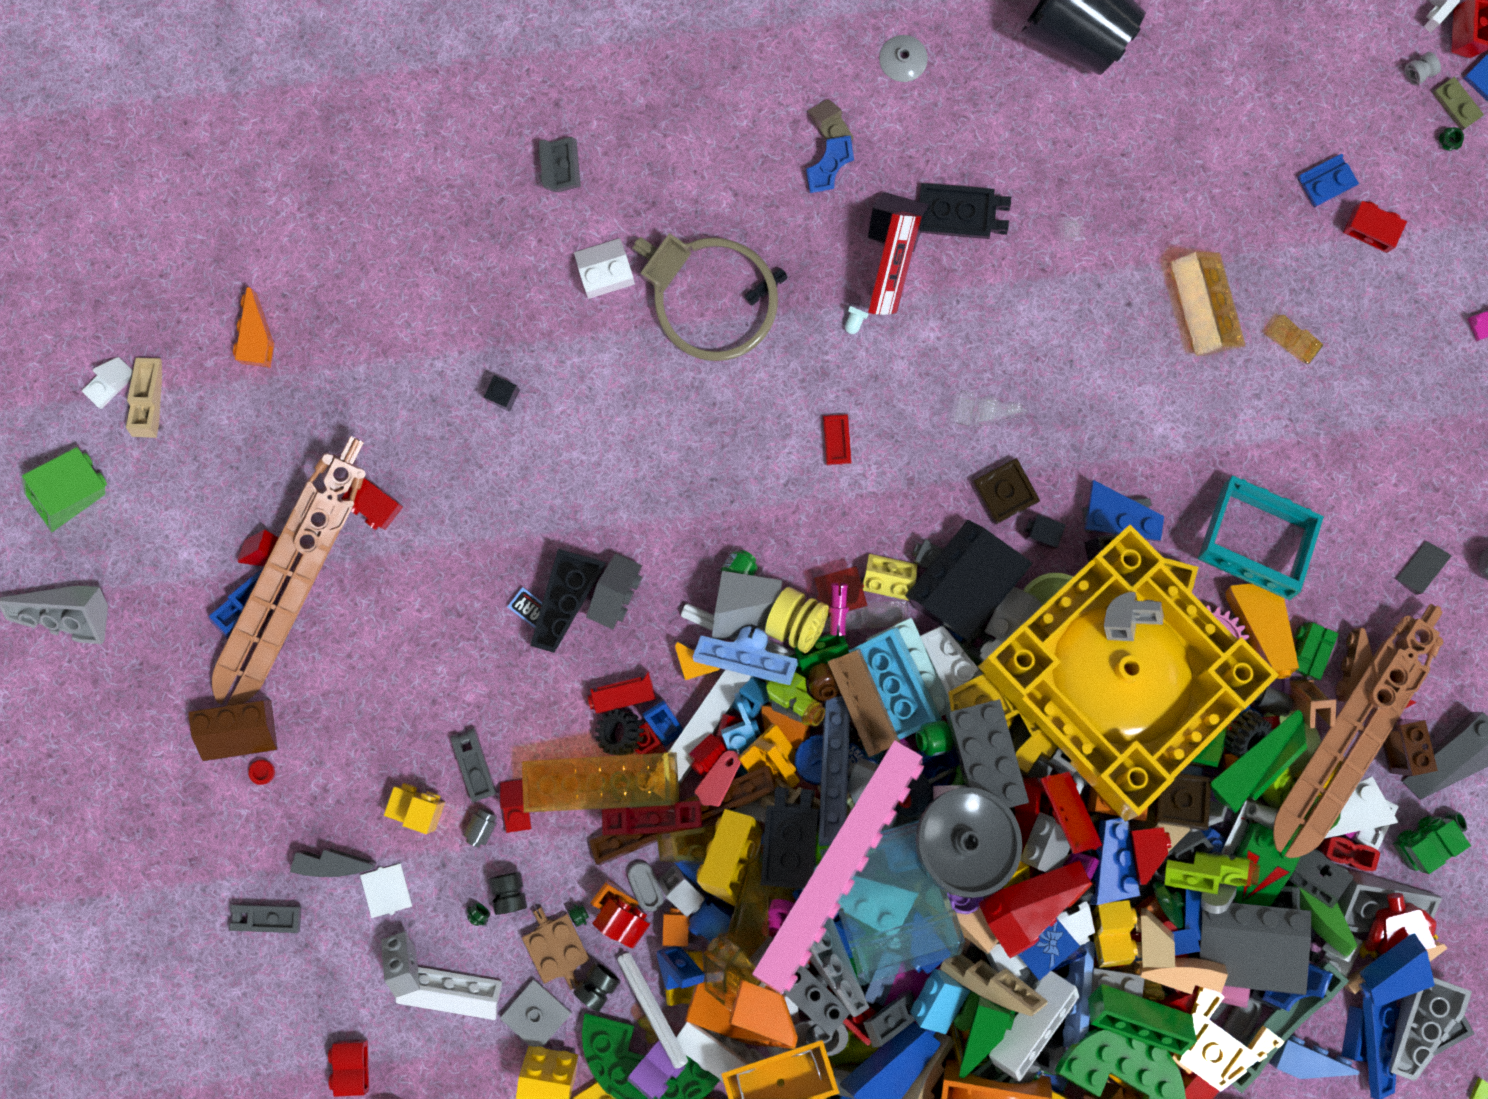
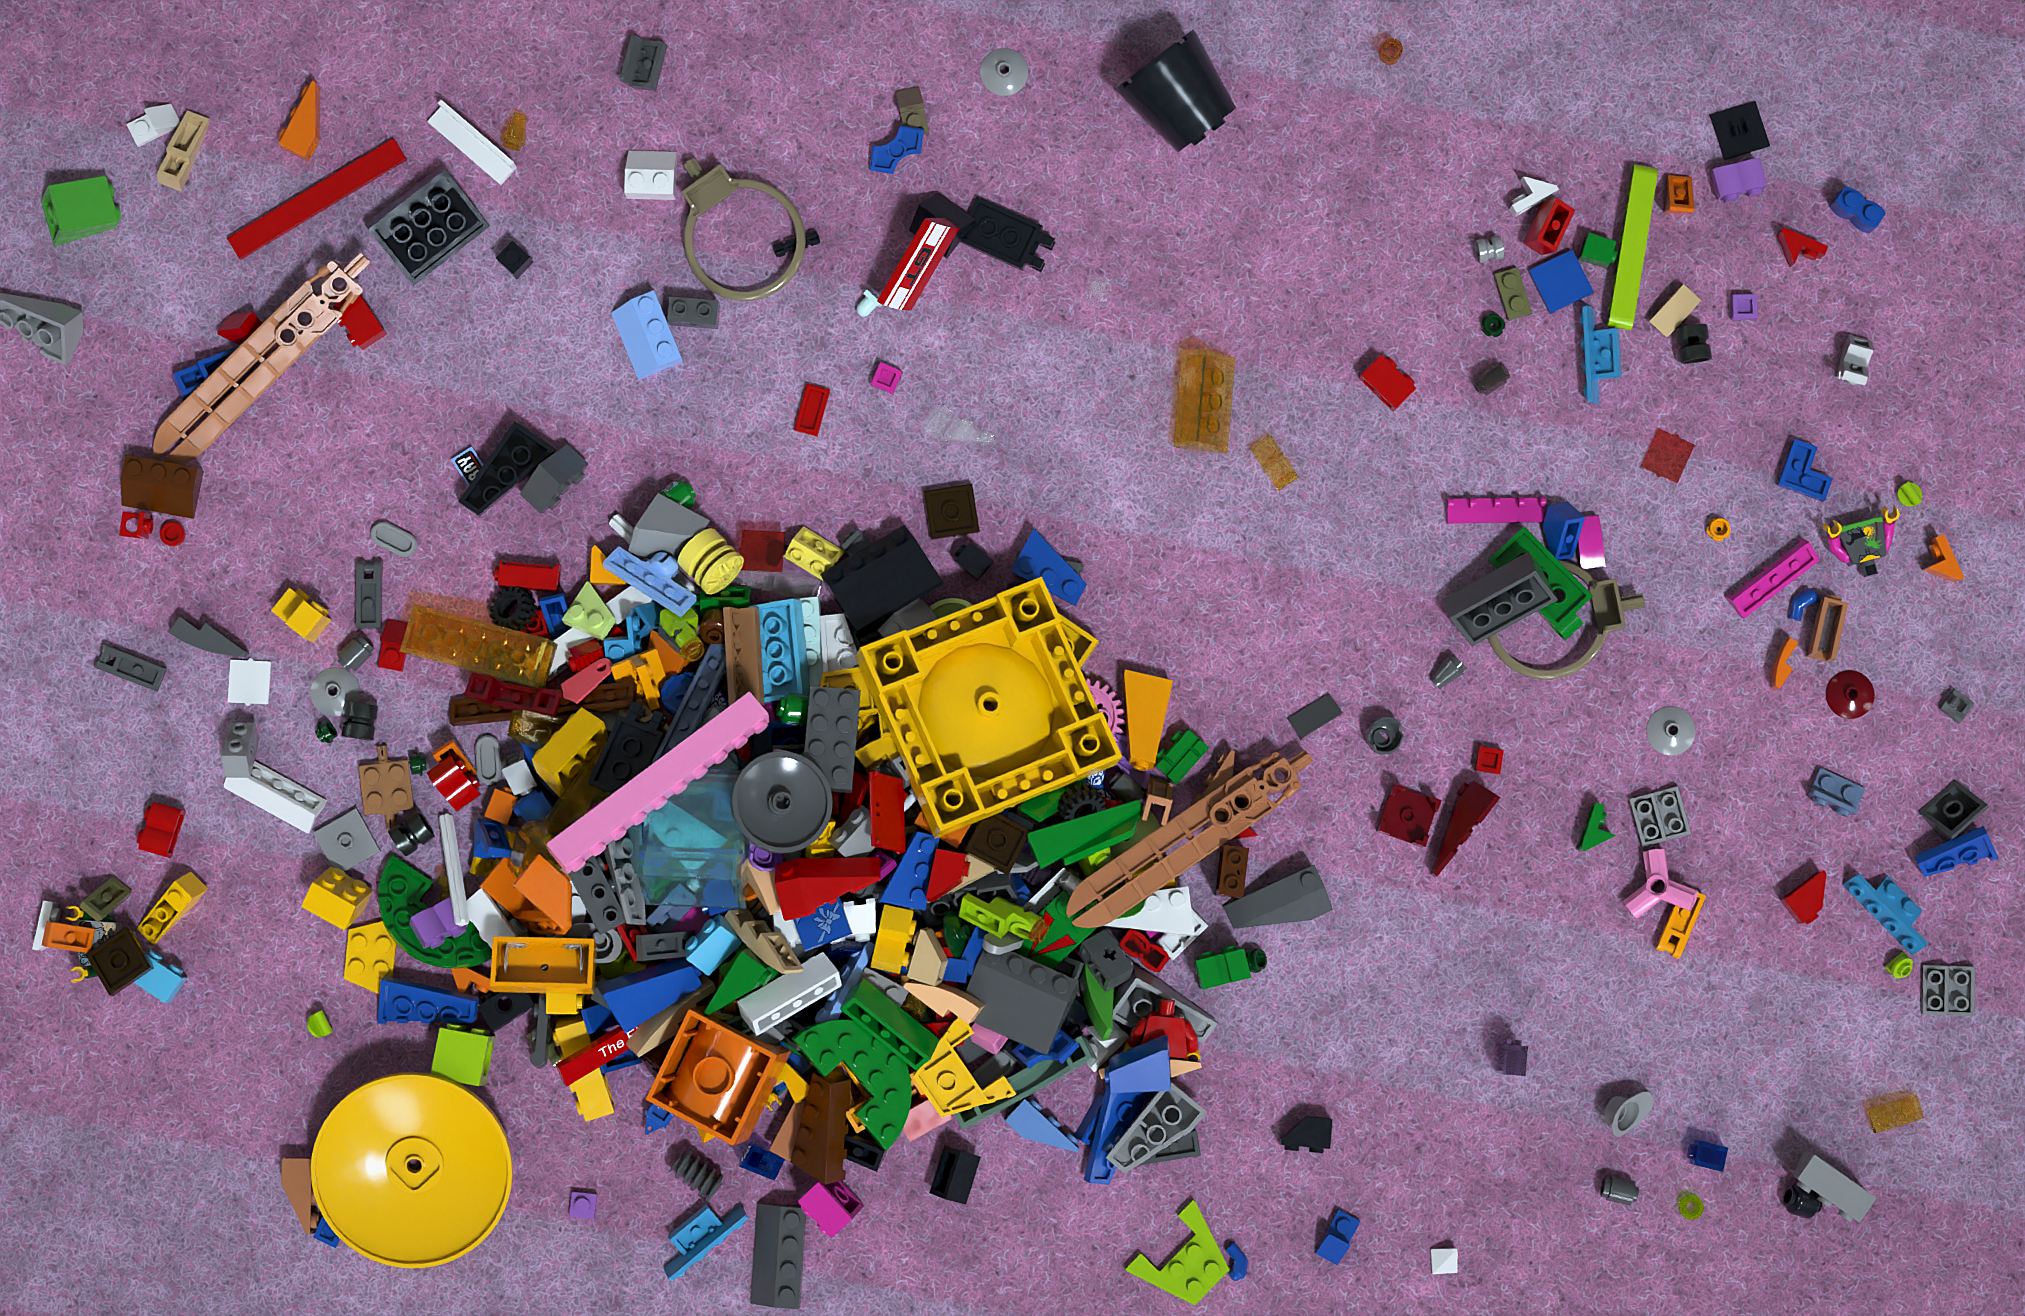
camera: 15 degrees right, 0 degrees up
(231, 775) = (144, 526): none -> red bracket
(290, 400) = (316, 199): none -> red tile
(405, 388) = (427, 224): none -> black slope
(421, 295) = (472, 143): none -> white panel
(459, 274) = (515, 133): none -> clear yellow cone
(476, 858) = (347, 691): none -> light grey dish
(479, 703) = (394, 539): none -> light grey tile
(654, 422) = (646, 335): none -> light blue slope
(692, 385) = (693, 312): none -> dark grey brick
(696, 711) = (589, 614): none -> yellowish green wing
(838, 609) = (753, 565): dark pink pin -> none
(898, 385) = (886, 378): none -> dark pink plate
(1126, 612) = (1004, 654): light grey brick -> none
(1246, 568) = (1143, 658): teal window -> none
(1328, 180) = (1362, 324): blue plate -> none
(1469, 189) = (1491, 378): none -> clear smoke brick

